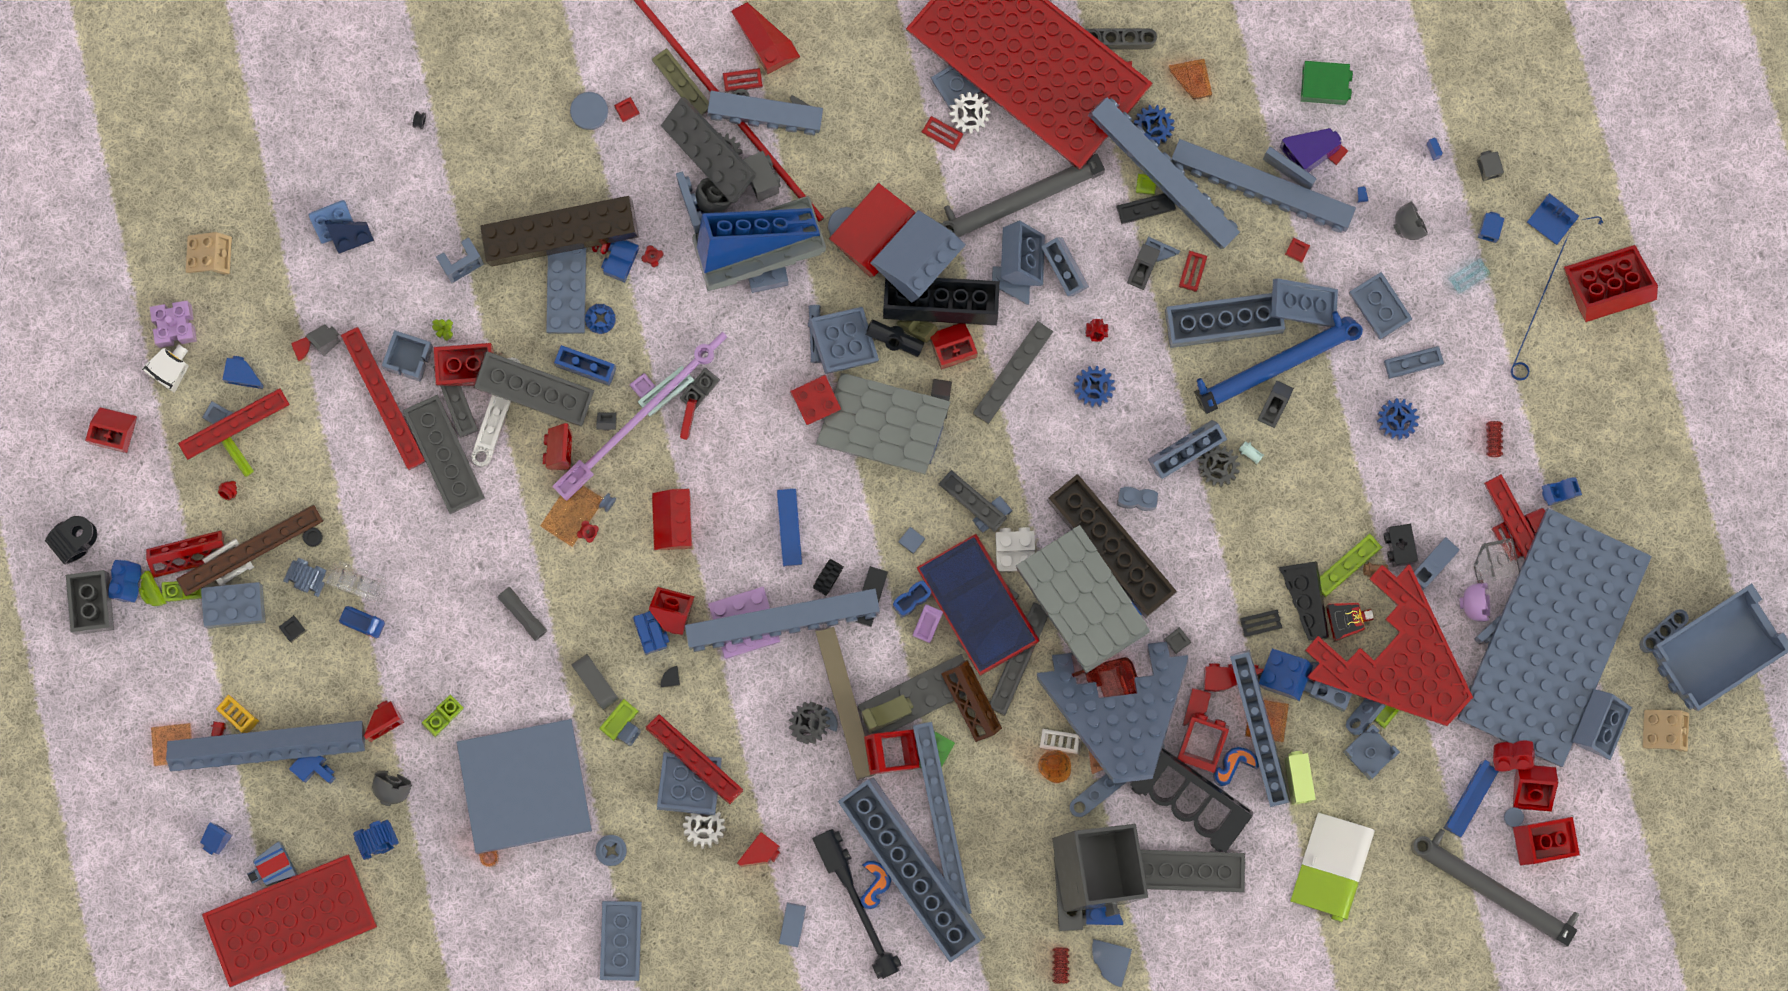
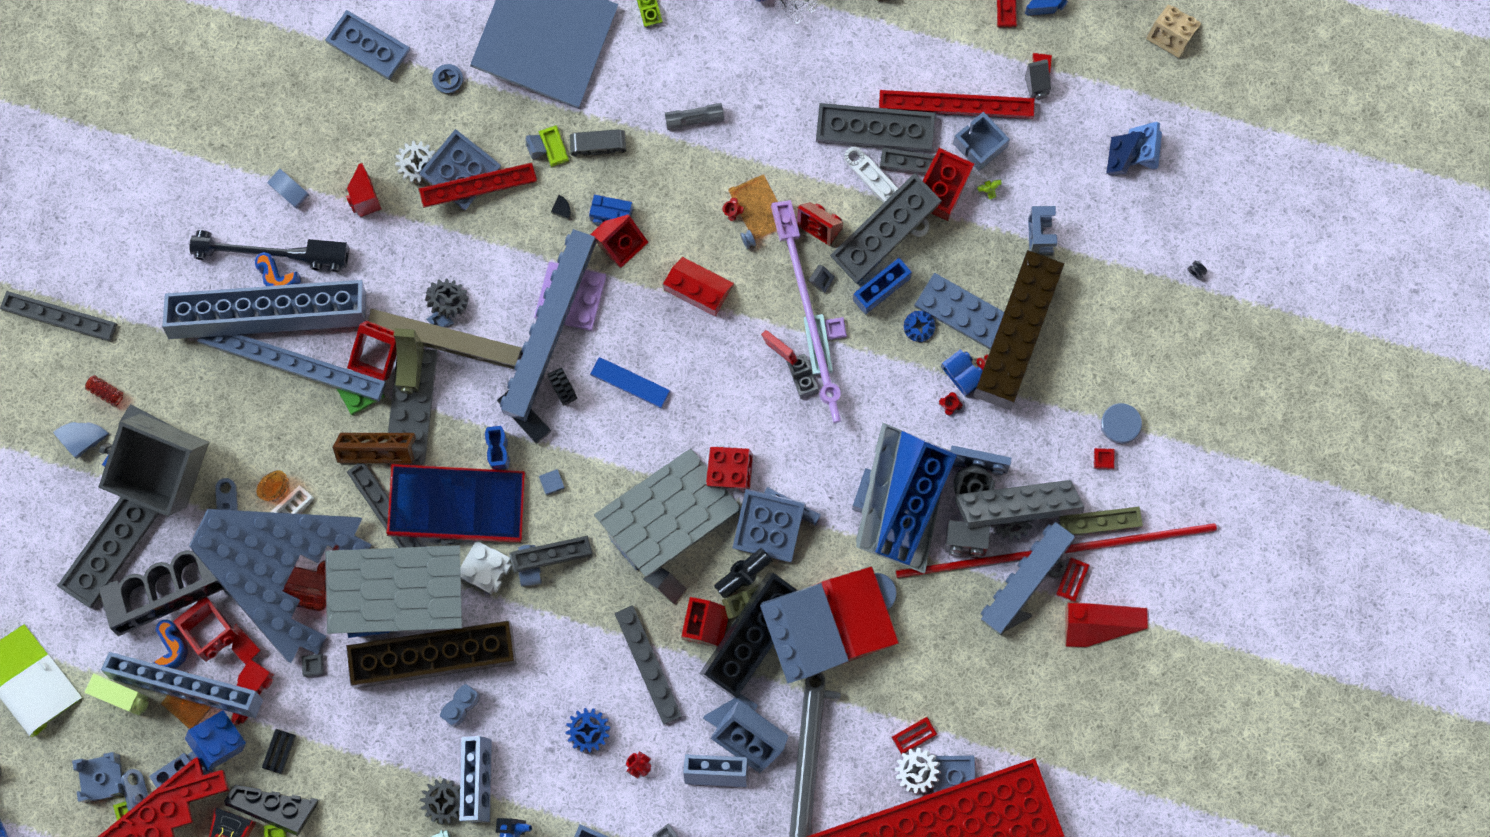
camera: 130 degrees right, 5 degrees down
(927, 623) = (467, 450): lavender tile -> none

